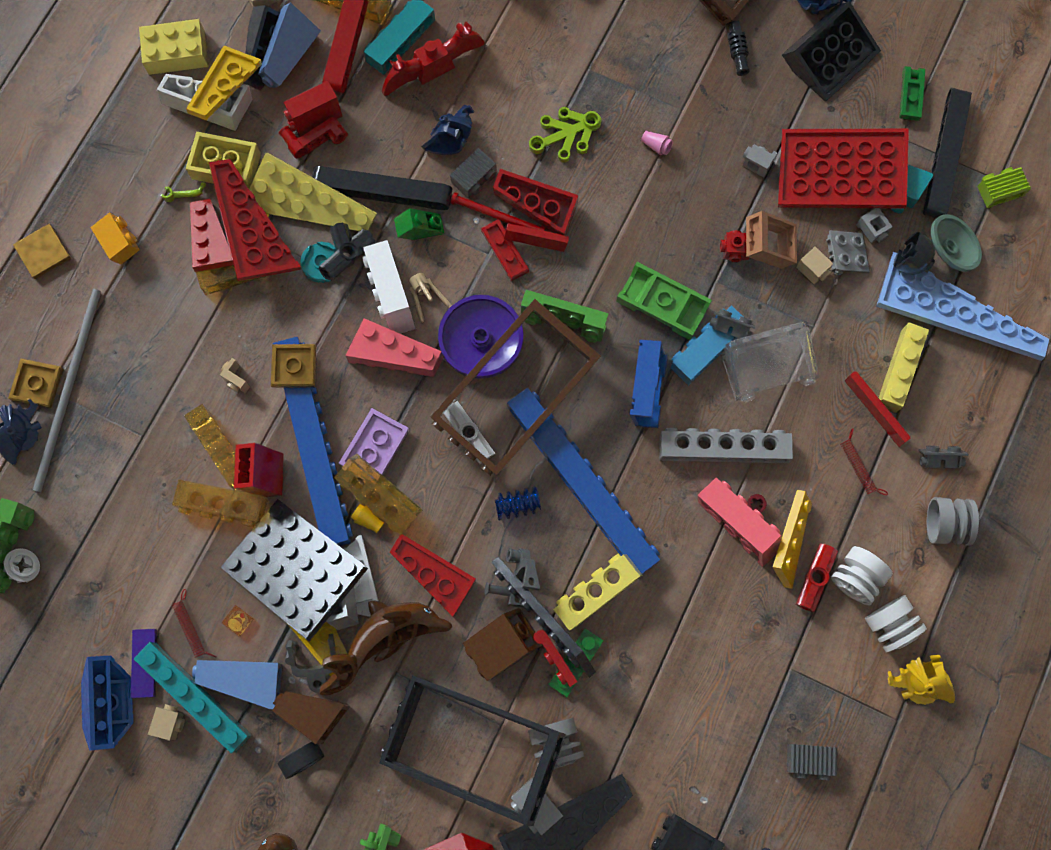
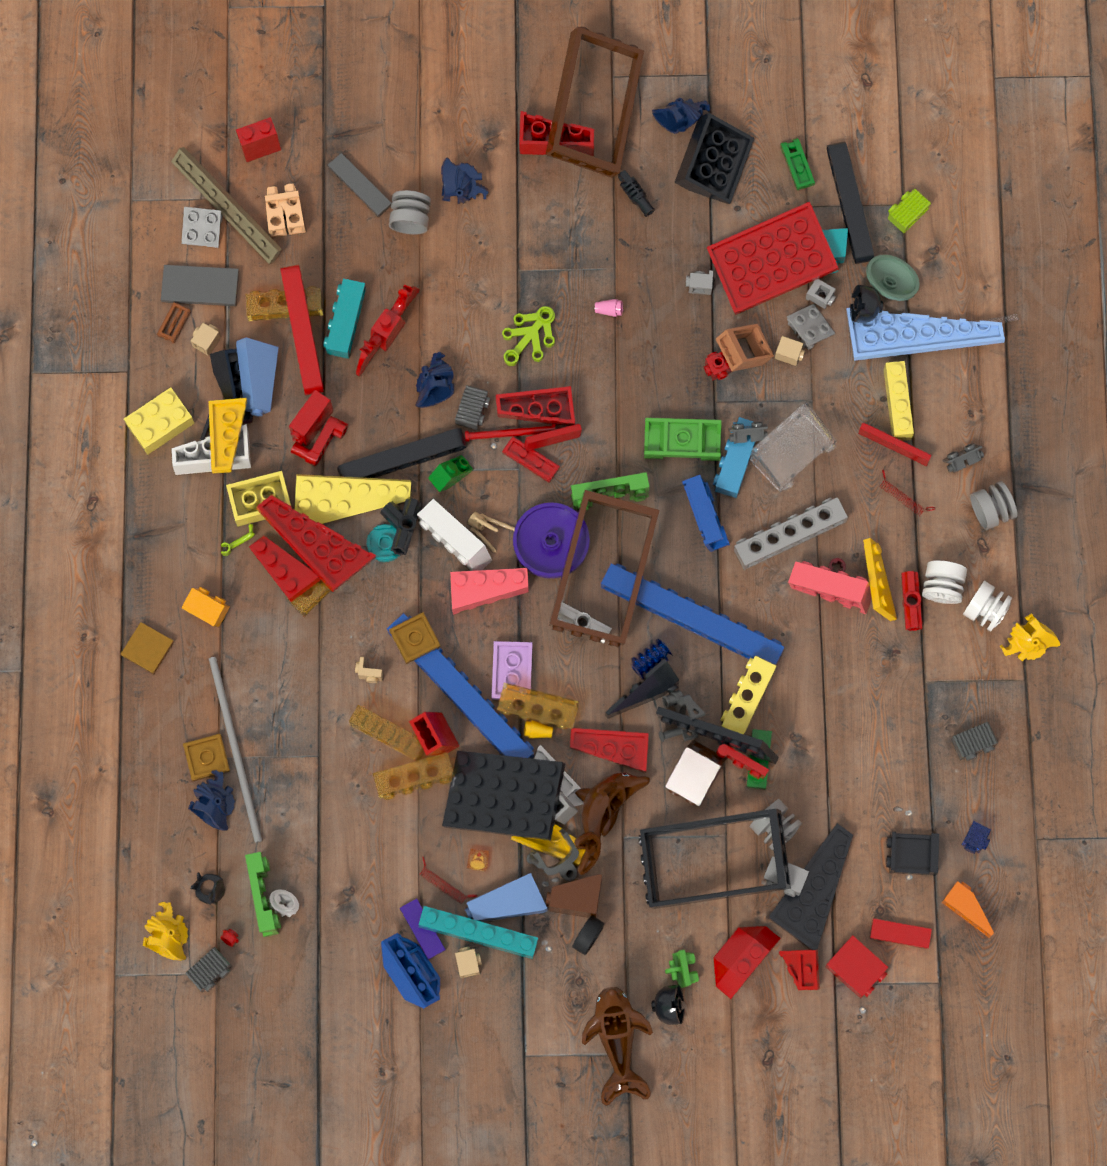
camera: 25 degrees left, 0 degrees up
(509, 532) = (656, 685): none -> black wedge

